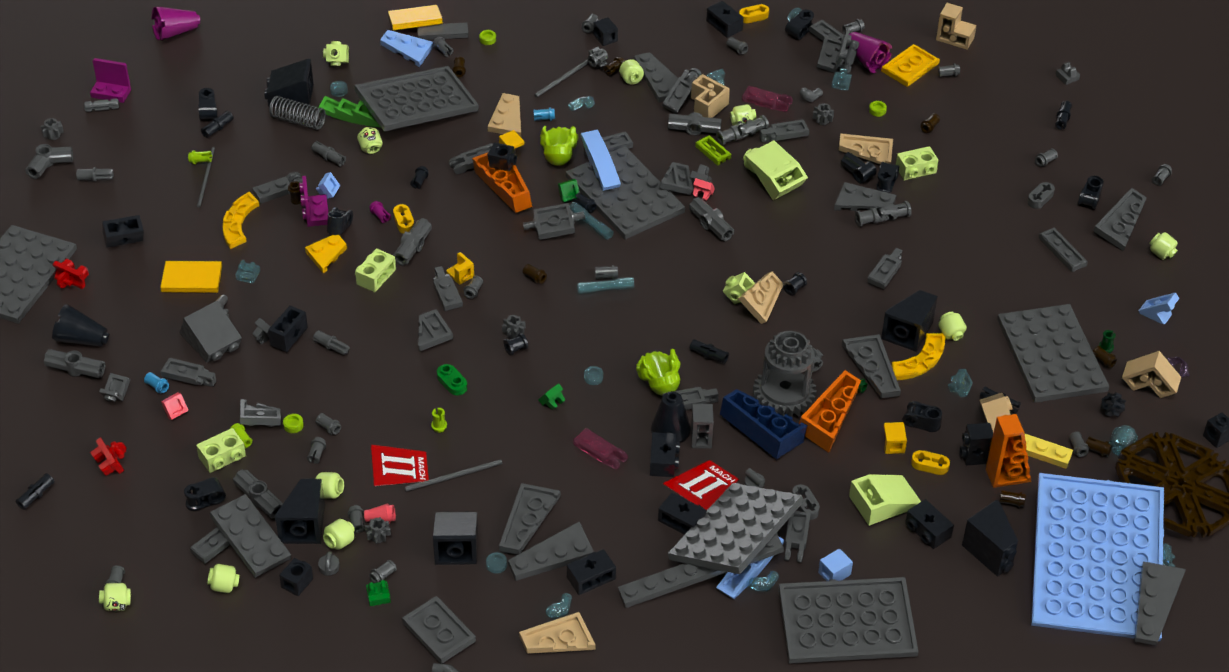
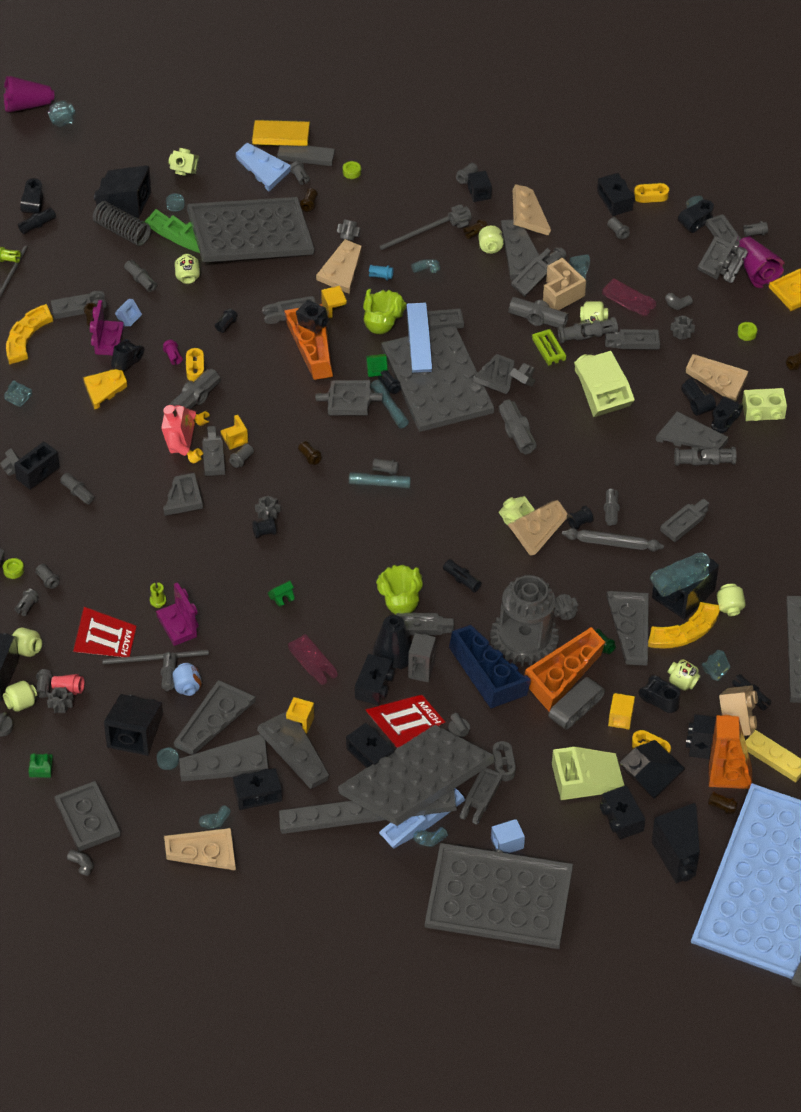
camera: 15 degrees right, 5 degrees up
(211, 32) = (61, 113): none -> clear light blue head
(375, 270) = (145, 417): yellowish green brick -> none
(382, 572) = (51, 744): dark grey pin -> none
(410, 276) = (178, 430): none -> coral torso
(451, 379) = (185, 549): green plate -> none
(467, 436) = (179, 618): none -> magenta bracket
(471, 485) = (166, 671): none -> dark grey axle
(491, 487) = (187, 679): none -> light blue head
(503, 84) = (348, 229): none -> dark grey gear
(593, 375) = (333, 578): clear light blue tile -> none
(609, 495) = (302, 712): none -> yellow panel
(609, 526) = (295, 748): none -> dark grey wing
(654, 44) = (527, 210): none -> tan wing
(703, 187) = (519, 388): coral tile -> none
(818, 269) = (611, 507): none -> dark grey axle
(829, 296) = (612, 539): none -> dark grey wheel
(841, 80) = (719, 290): clear light blue tile -> none
(852, 439) = (576, 703): none -> dark grey beam
(910, 308) = (680, 574): none -> clear light blue piece
(936, 395) = (683, 675): none -> yellowish green head
(940, 481) = (652, 767): none -> black slope

